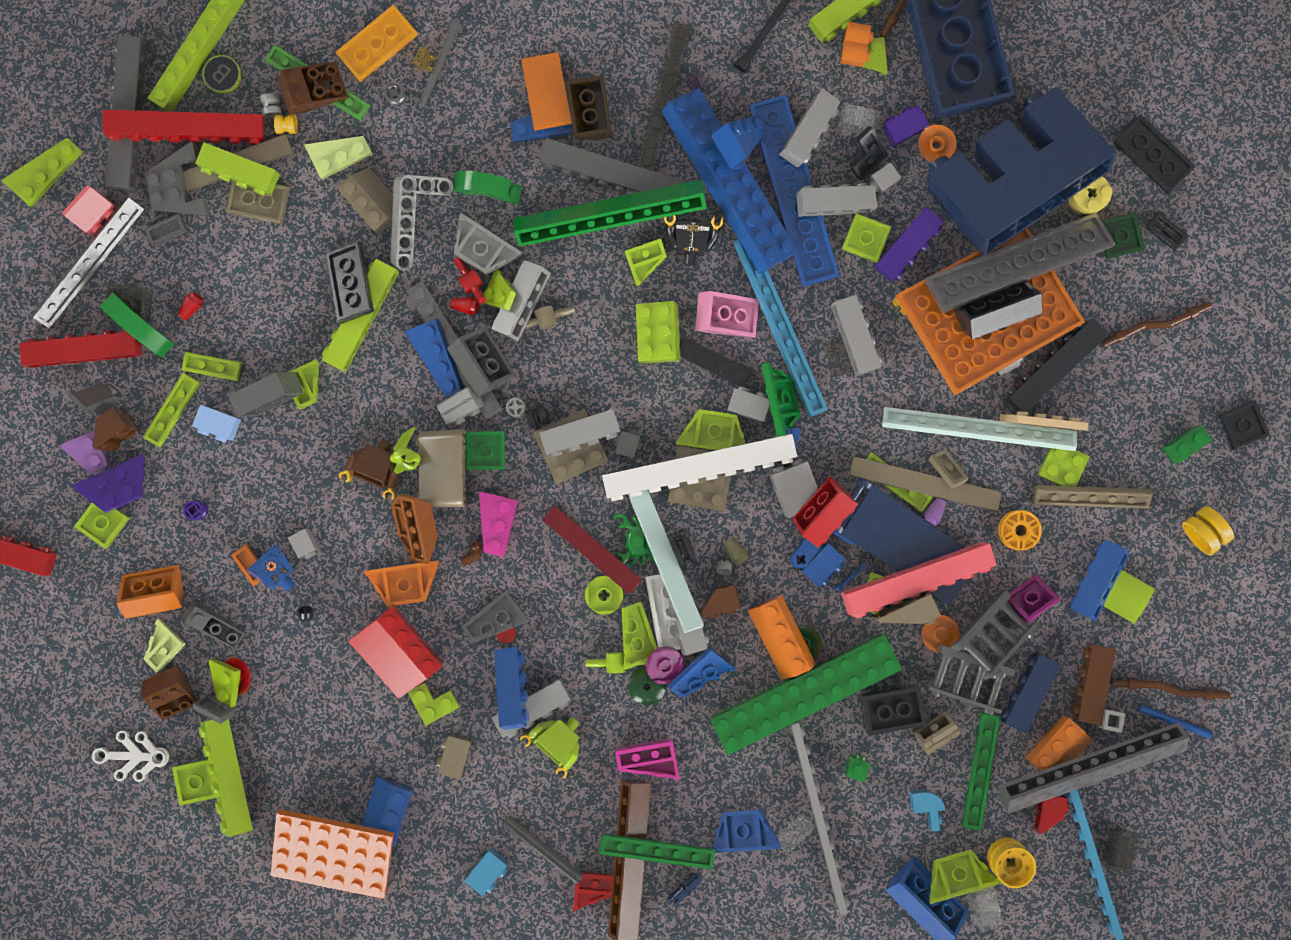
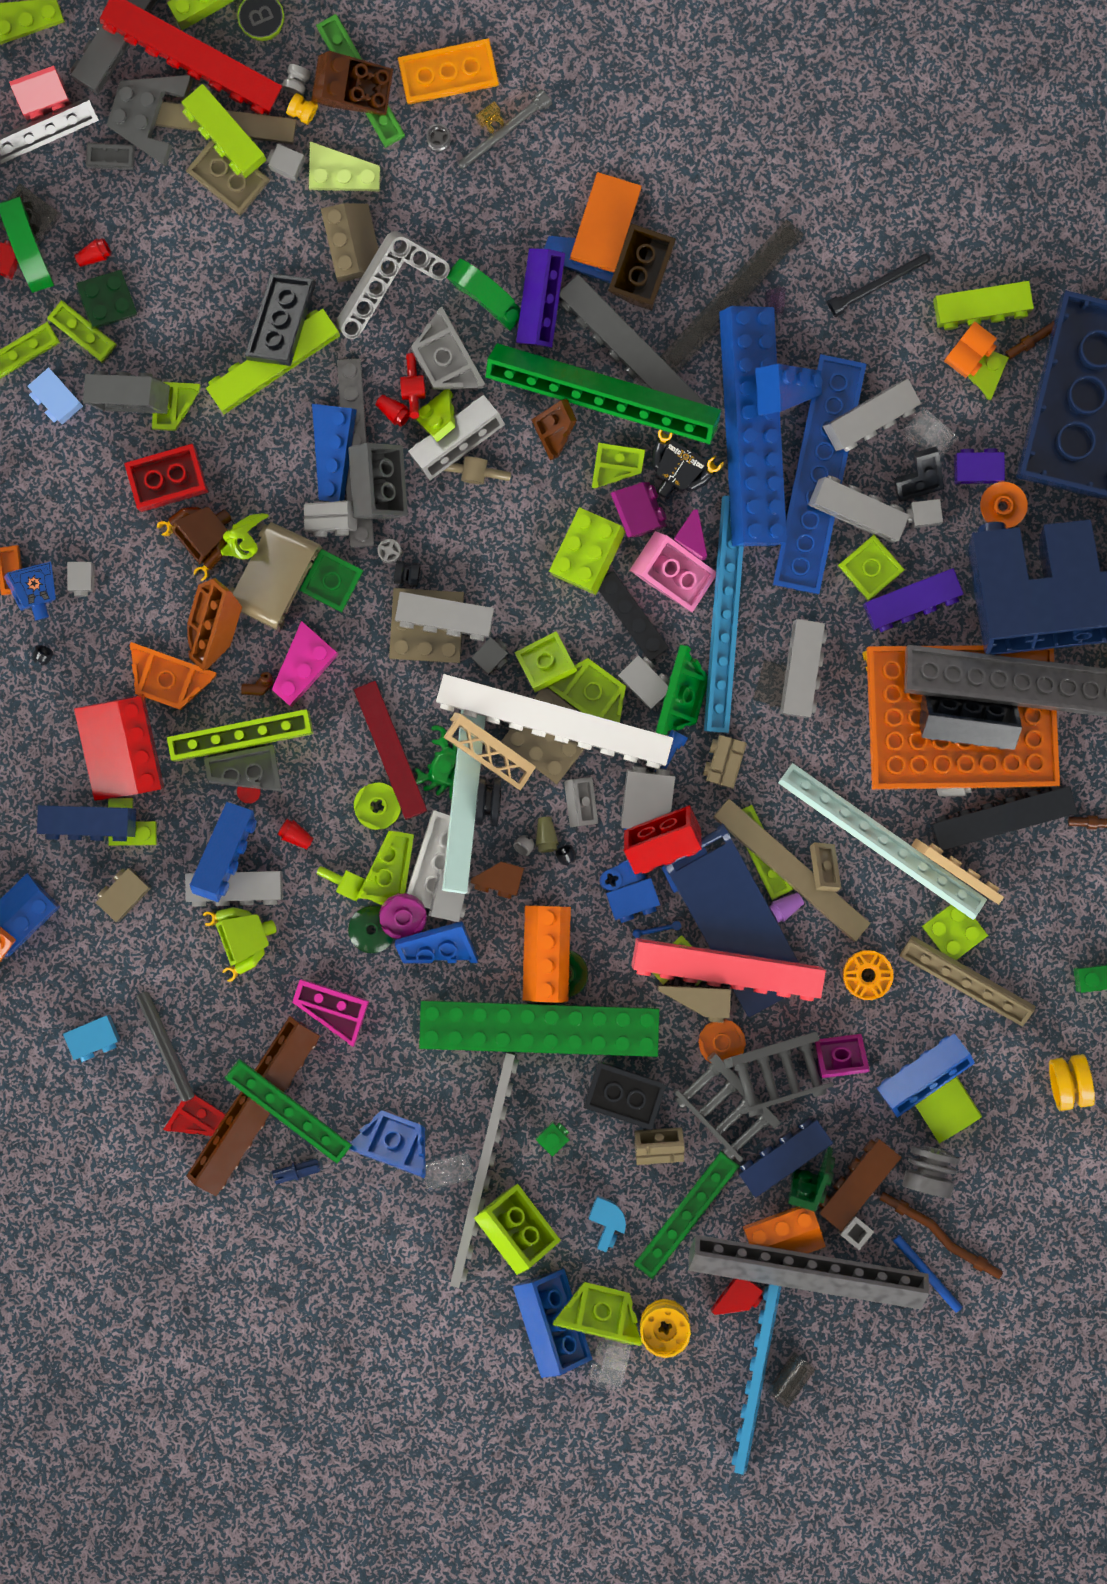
camera: 25 degrees right, 0 degrees up
(217, 334) = (106, 299): none -> dark green plate
(294, 168) = (286, 162): none -> light grey brick
(327, 439) = (166, 477): none -> red brick
(400, 717) = (86, 821): none -> dark blue brick
(478, 597) = (240, 735): none -> lime brick
(528, 168) = (540, 297): none -> dark purple brick
(555, 646) = (295, 834): none -> red cone
(587, 256) = (555, 427): none -> reddish brown wing
(661, 507) = (490, 743): none -> tan fence
(670, 427) = (545, 661): none -> lime plate
(679, 282) = (639, 509): none -> magenta slope
(728, 282) = (691, 536): none -> magenta slope
(748, 514) = (581, 802): none -> light grey slope
(757, 558) = (565, 854): none -> black hinge
(836, 431) = (725, 761): none -> dark tan brick
(867, 848) = (517, 1229): none -> lime brick
(1062, 706) = (808, 1188): none -> dark green bracket
(1141, 647) = (931, 1171): none -> flat silver wheel

